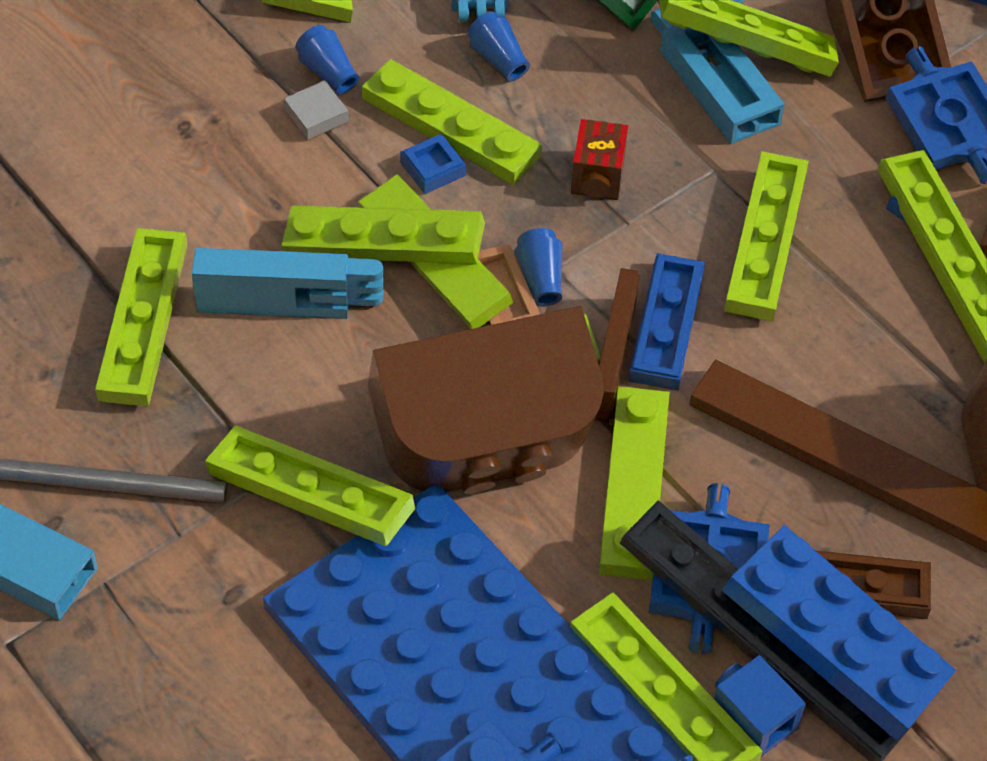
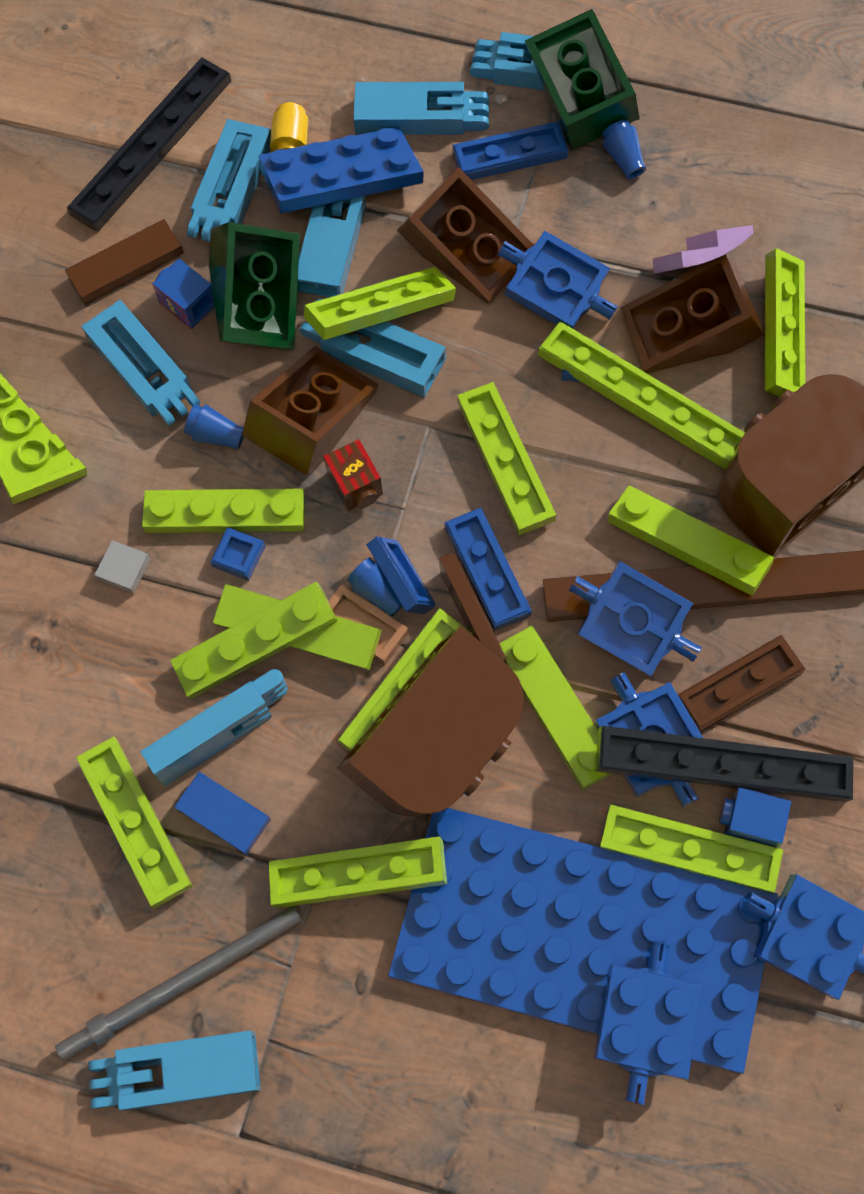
camera: 30 degrees left, 15 degrees up
(229, 364) = (222, 813): none -> blue tile
(325, 56) = (98, 520): blue cone -> none
(573, 264) = (401, 575): none -> blue tile
(602, 78) = (307, 409): none -> reddish brown slope
(779, 444) = (635, 618): none -> blue plate
(839, 631) = (771, 732): blue plate -> none
(902, 418) = (690, 540): none -> lime plate

